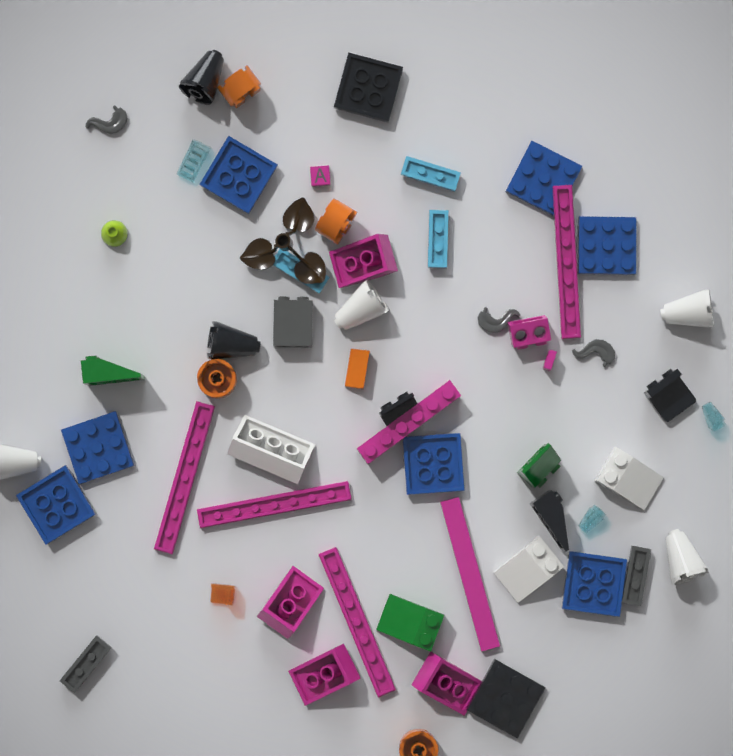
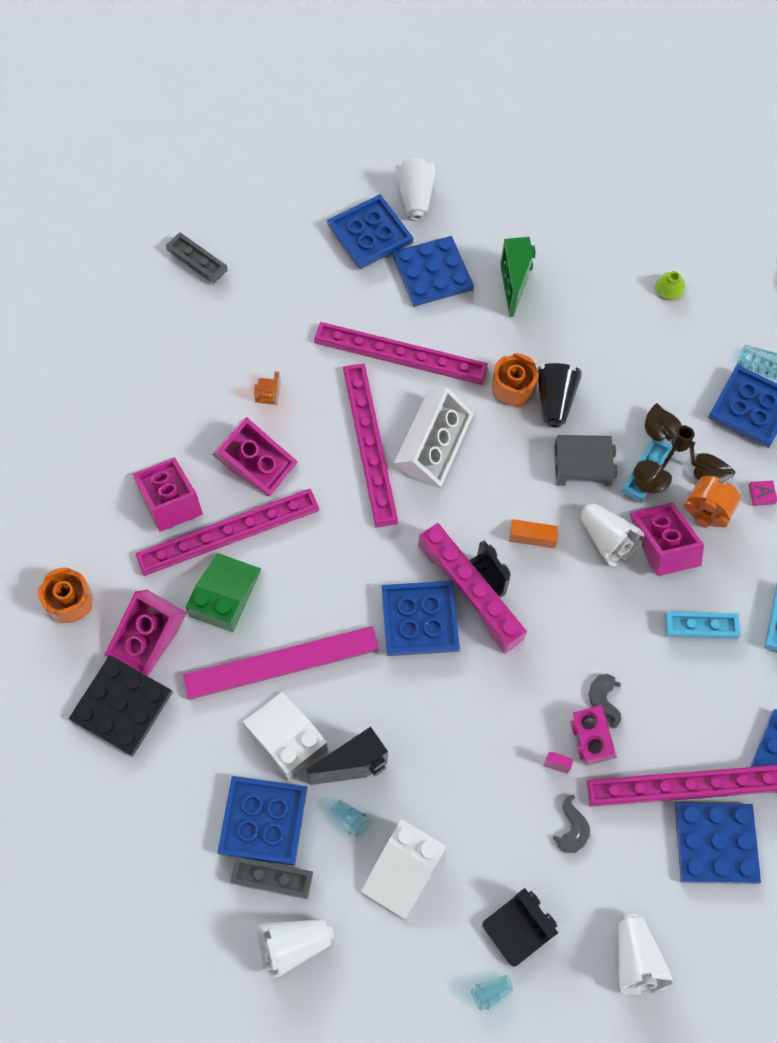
camera: 90 degrees right, 20 degrees down
(540, 465) = (420, 742): green slope -> none

